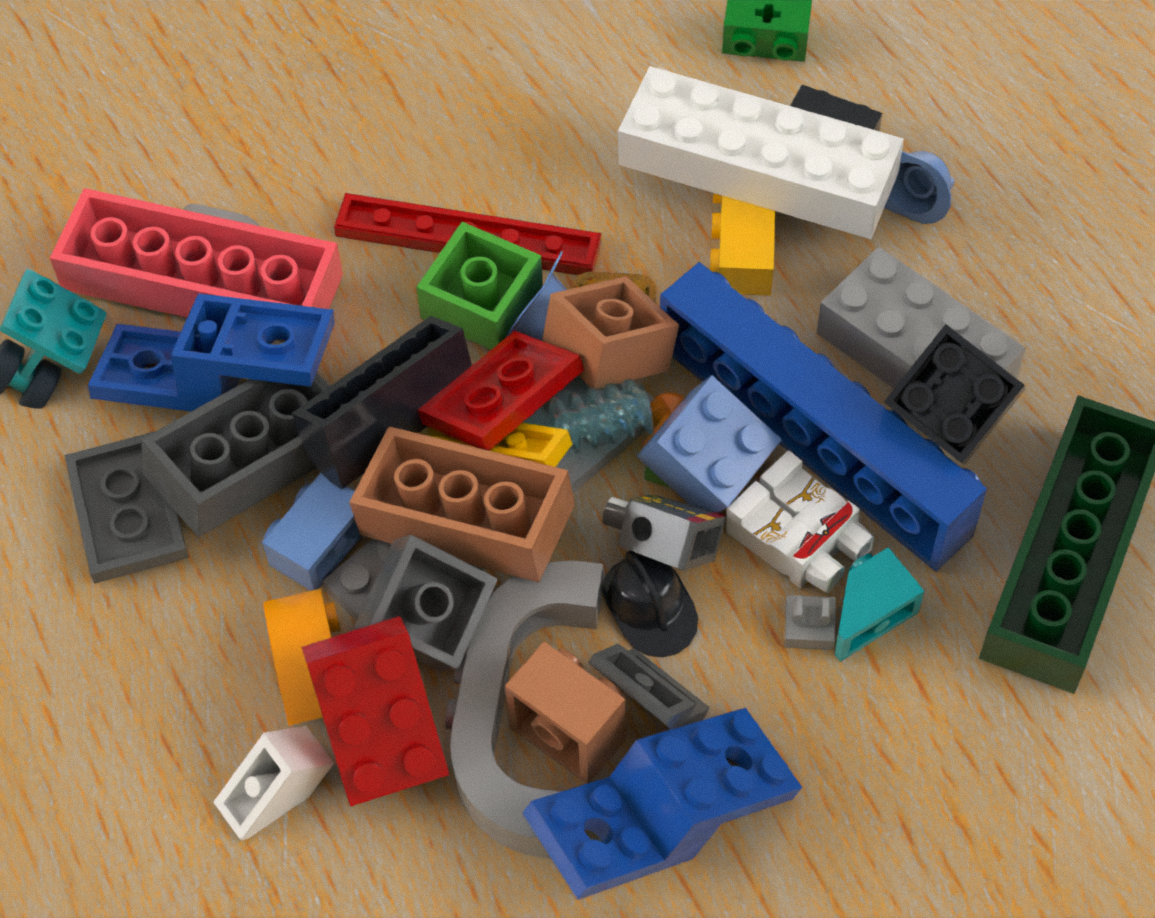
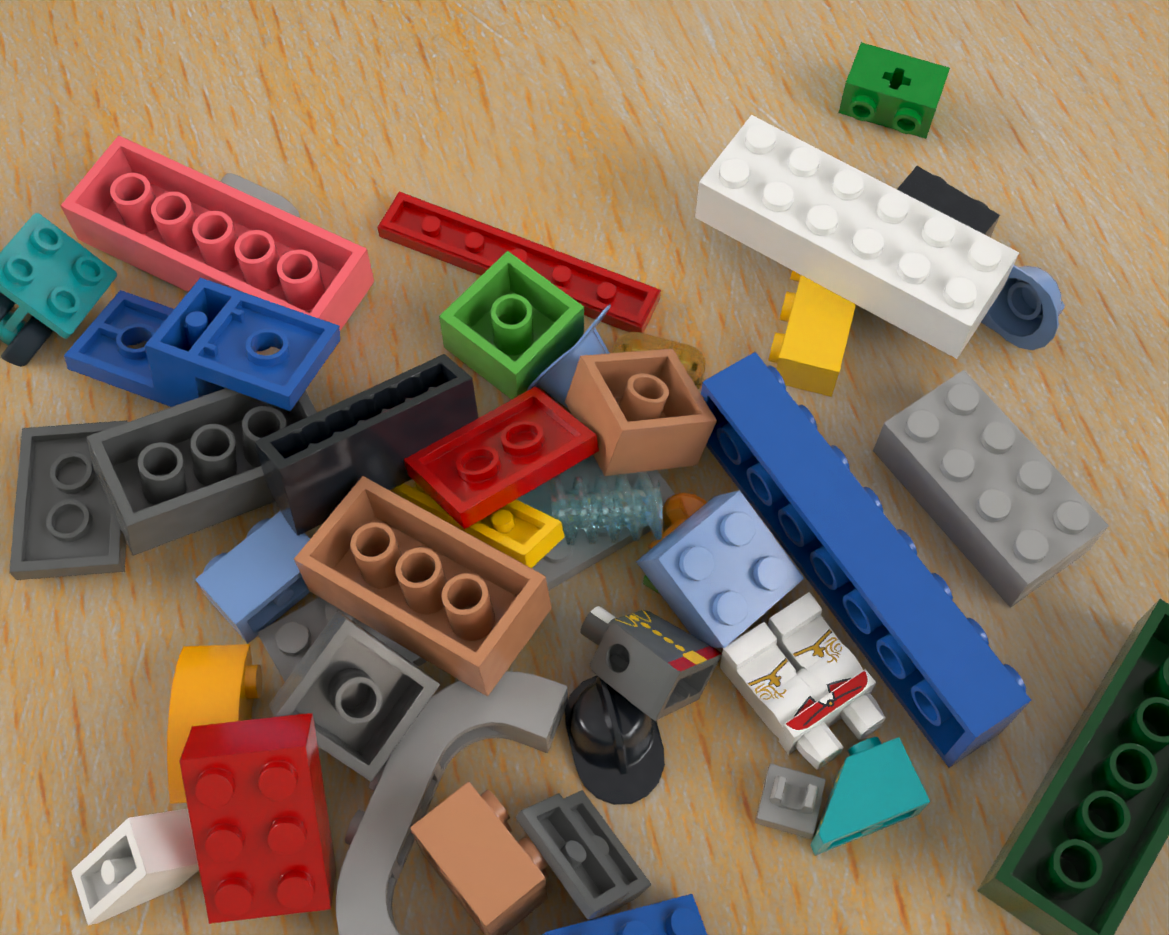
camera: 10 degrees right, 5 degrees up
(955, 394) = (1017, 579): black brick -> none

